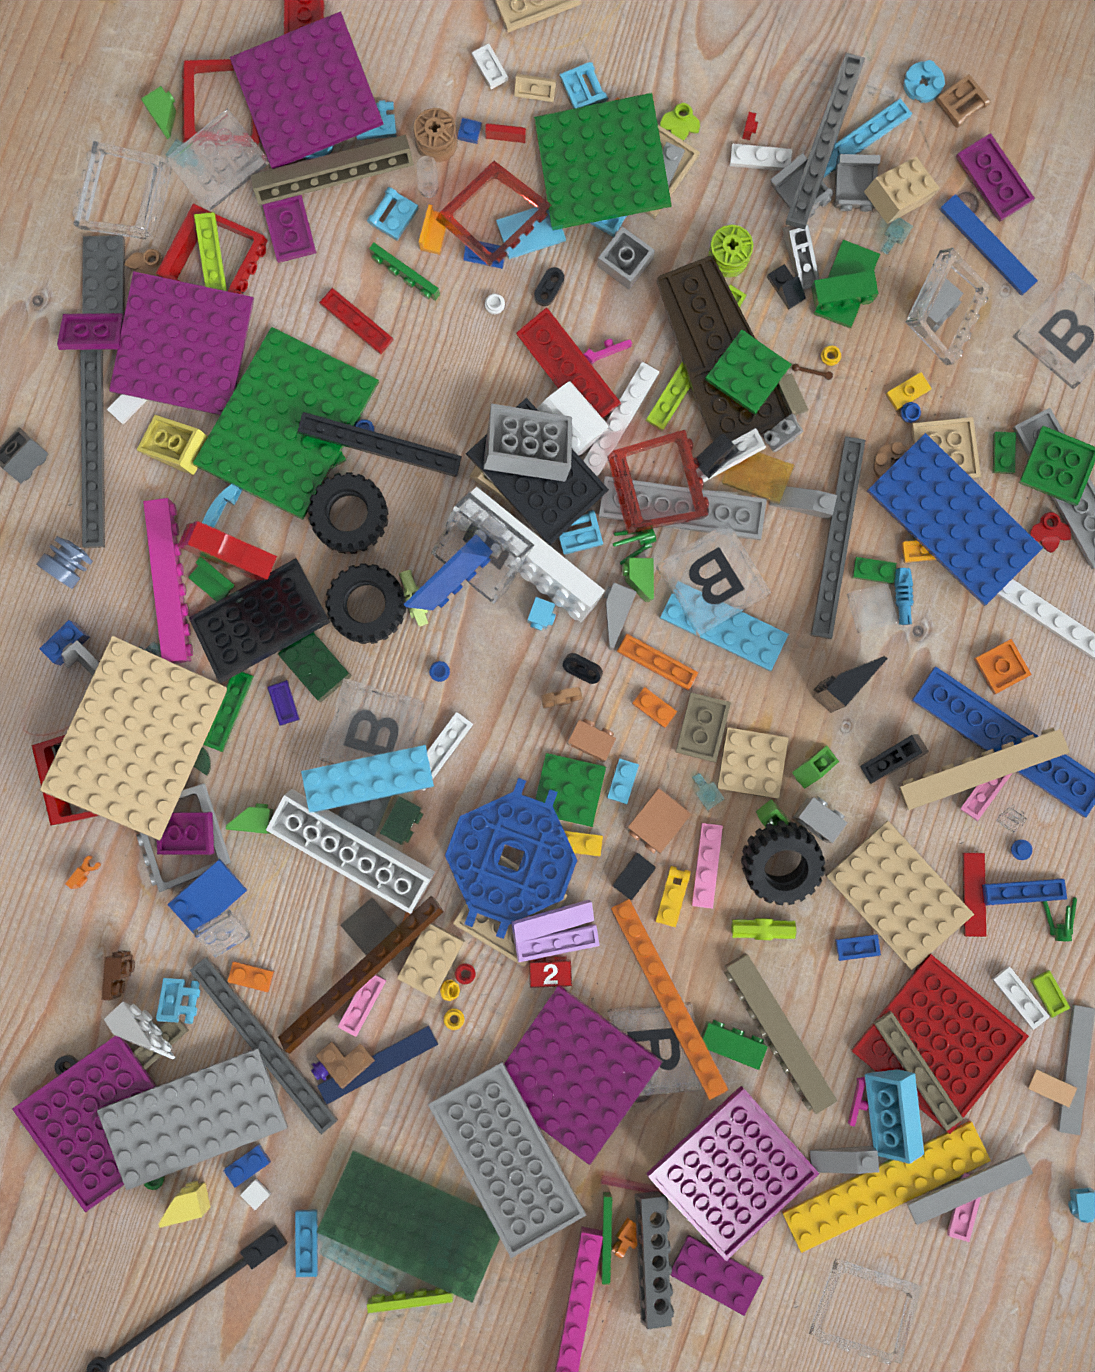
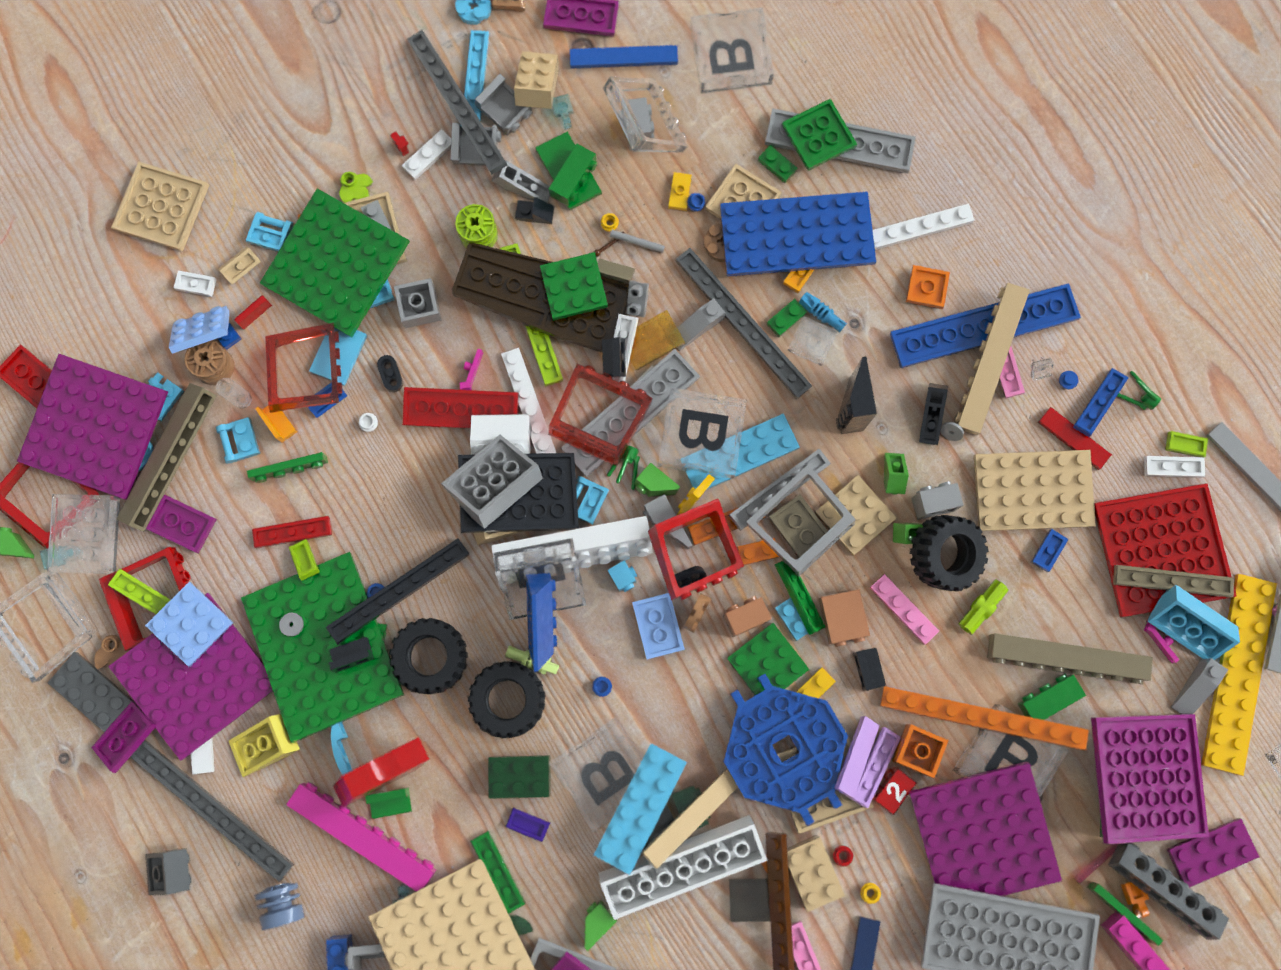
camera: 50 degrees left, 5 degrees down
(217, 304) = (189, 624): none -> light blue plate
(258, 620) = (451, 792): black plate -> none
(280, 378) = (285, 624): none -> light grey wheel
(298, 450) = (350, 655): none -> black panel
(342, 349) = (303, 559): none -> lime tile
(392, 826) = (690, 819): none -> tan tile
(447, 742) = (659, 723): white plate -> none
(449, 990) = (846, 878): yellow plate -> none
(454, 103) = (199, 329): none -> light blue plate
(525, 676) = (658, 626): none -> light blue plate
(598, 609) = (656, 533): none -> red windscreen
(600, 968) = (920, 750): none -> orange brick
(646, 770) = (800, 598): none -> green tile
(654, 616) = (694, 495): none -> yellow wing
(672, 897) = (907, 653): yellow plate -> none
(705, 754) = (824, 543): none -> light grey windscreen
(708, 793) = (853, 565): clear light blue plate -> none
(720, 682) = (739, 517): none -> light grey plate
(834, 392) = (637, 241): none -> light grey bar
(891, 786) = (957, 433): none -> light grey wheel
(1050, 535) = (861, 180): red plate -> none
(1052, 1088) = (1257, 497): light nougat tile -> none

